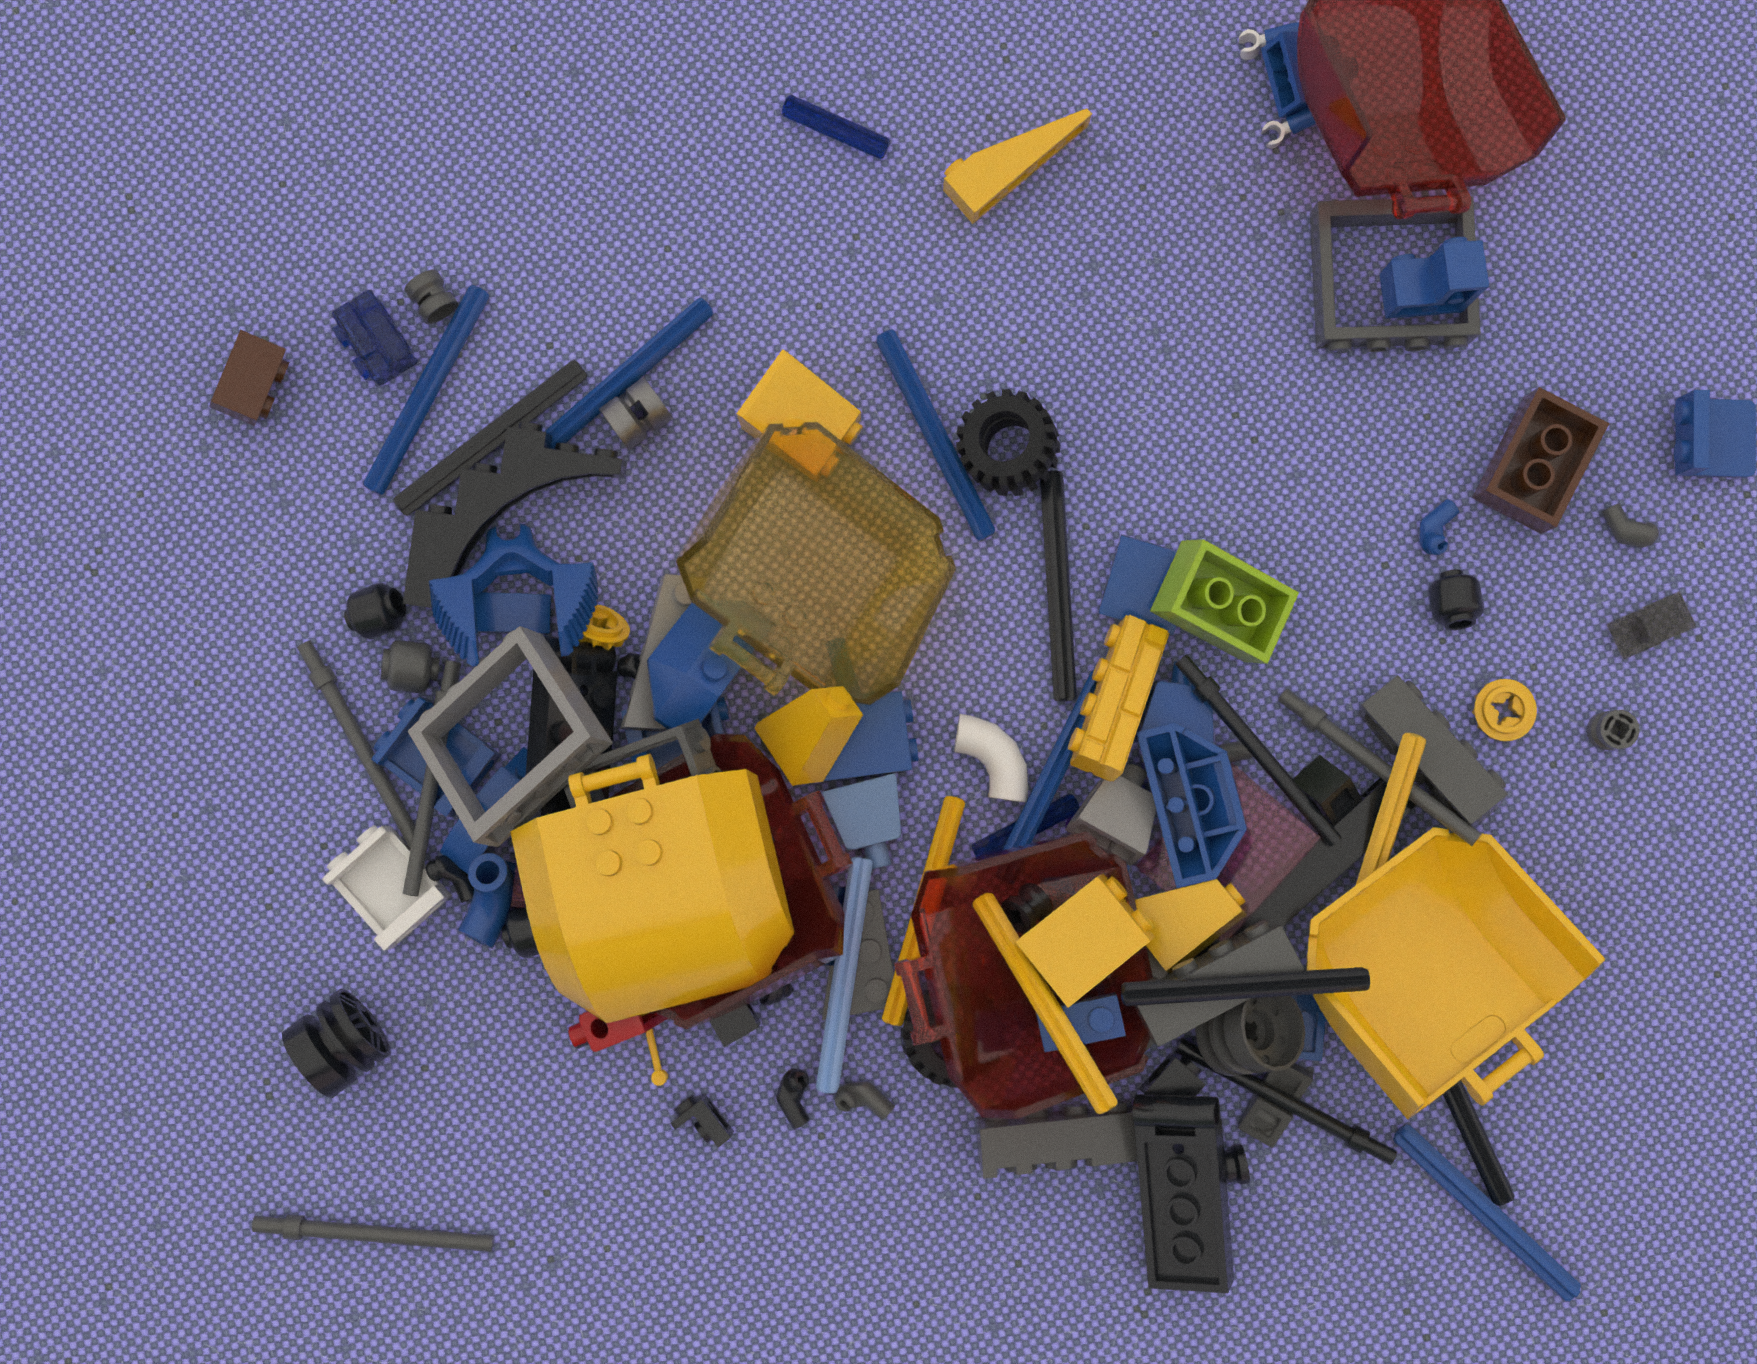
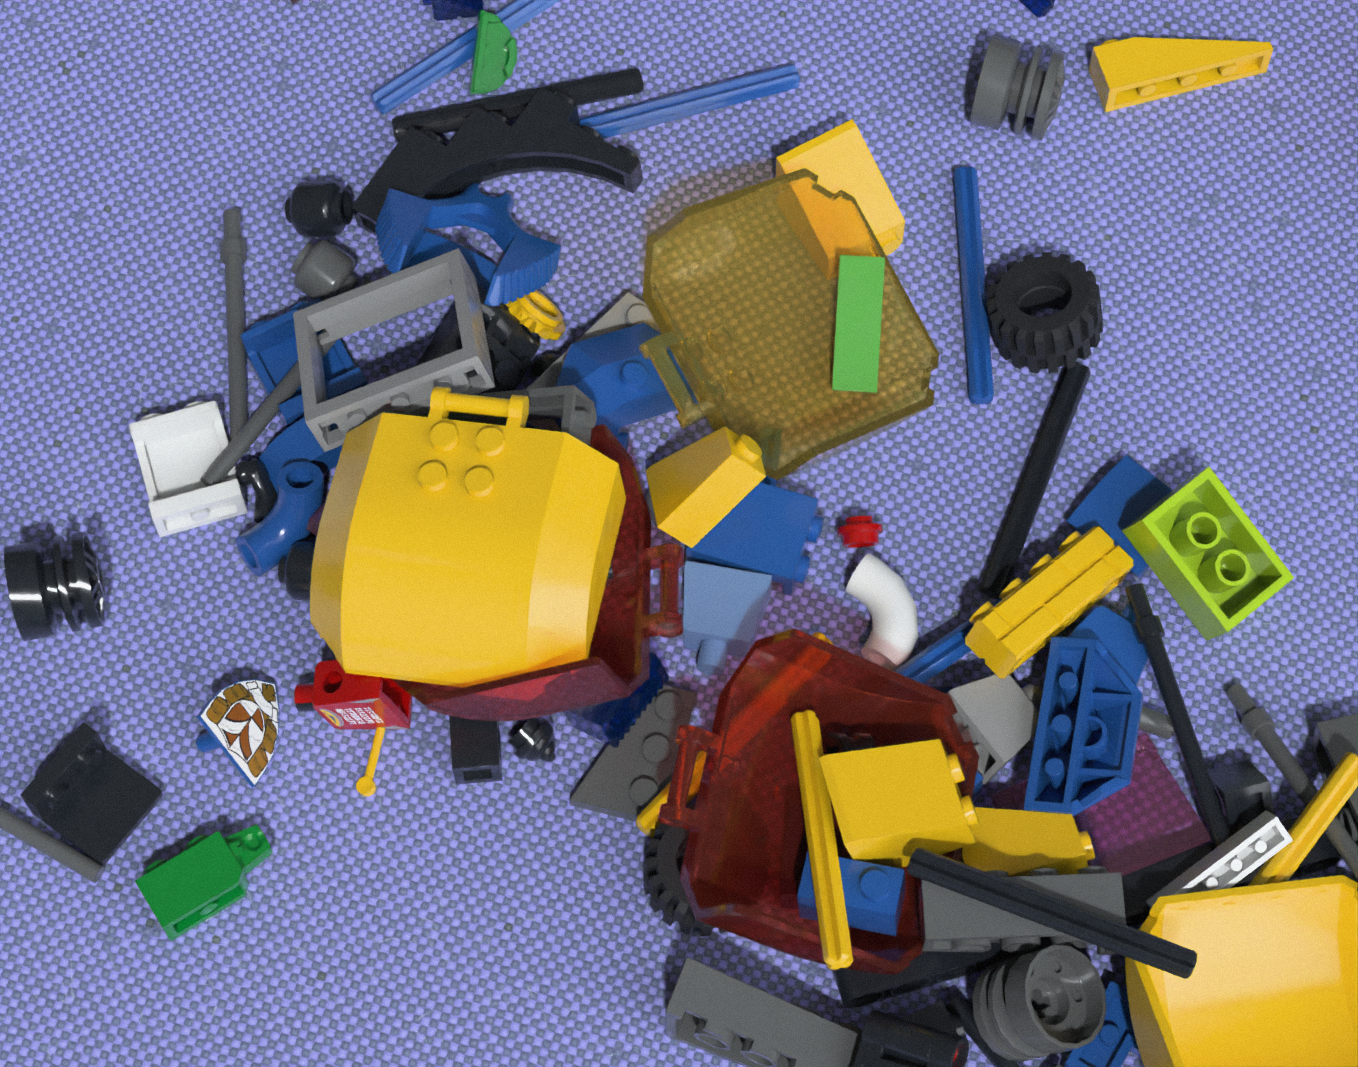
camera: 30 degrees right, 20 degrees down
(447, 402) = (492, 55): none -> green plate
(456, 1190) = (91, 795): none -> black bracket
(544, 1082) = (244, 725): none -> shield
(574, 1217) = (202, 878): none -> green hinge
(624, 421) = (659, 139): flat silver wheel -> none
(709, 1123) = (395, 850): black bracket -> none
(790, 1095) = (497, 864): black arm -> none
(844, 977) = (616, 758): light blue axle -> none
(863, 1094) = (574, 899): dark grey arm -> none
(866, 527) = (858, 324): none -> bright green tile
(900, 245) = (1018, 87): none -> dark grey wheel
(943, 697) = (860, 532): none -> red plate
(1343, 862) = (1232, 858): none -> white piece

